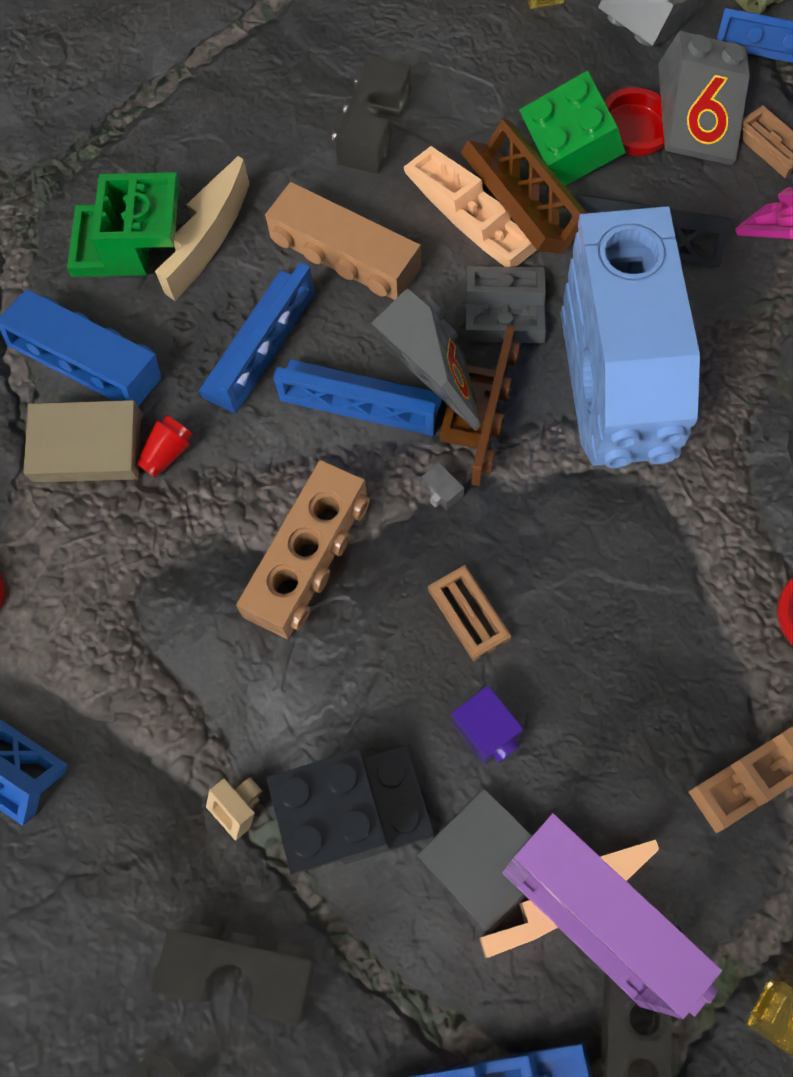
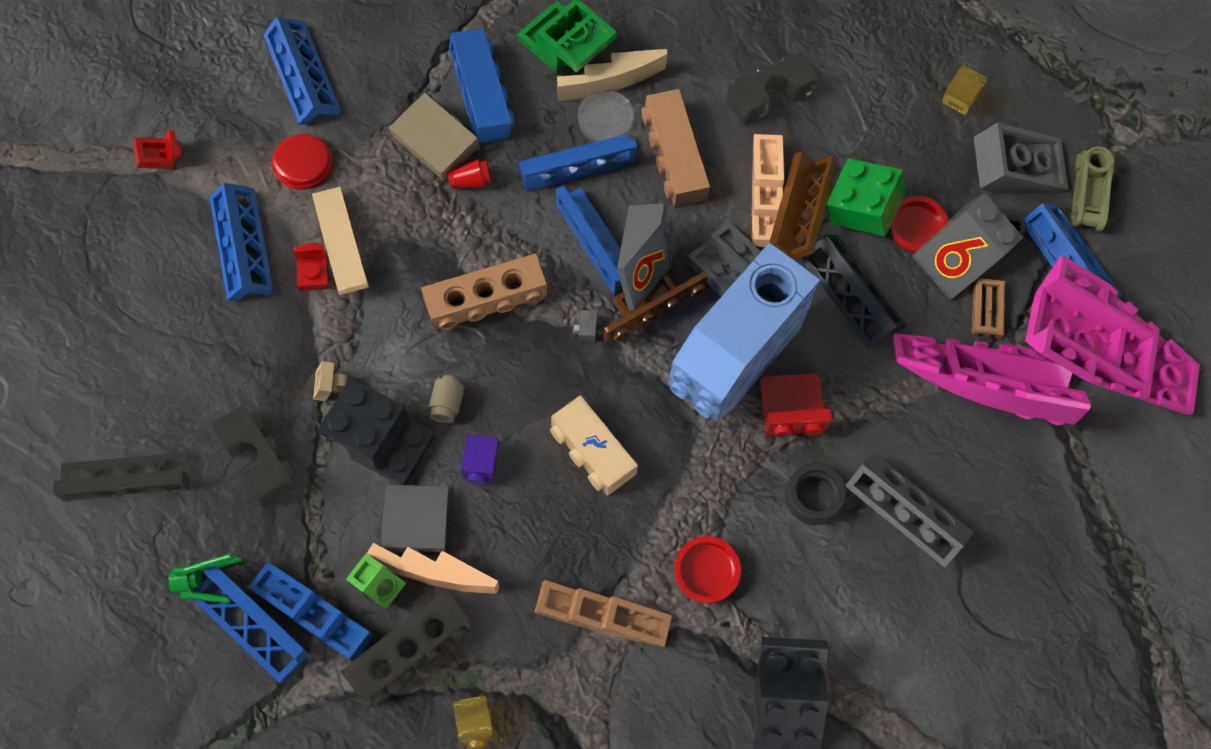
camera: 35 degrees right, 0 degrees up
(85, 697) = (312, 267): none -> red bracket
(91, 640) = (339, 241): none -> tan slope
(238, 273) = (605, 115): none -> clear tile
(383, 698) = (446, 399): none -> dark tan brick
(487, 644) = (527, 424): medium nougat tile -> none
(527, 979) = (375, 581): none -> bright green brick
(584, 599) = (593, 446): none -> tan brick
(612, 922) = (420, 565): medium lavender window -> none
(732, 380) = (793, 405): none -> red bracket

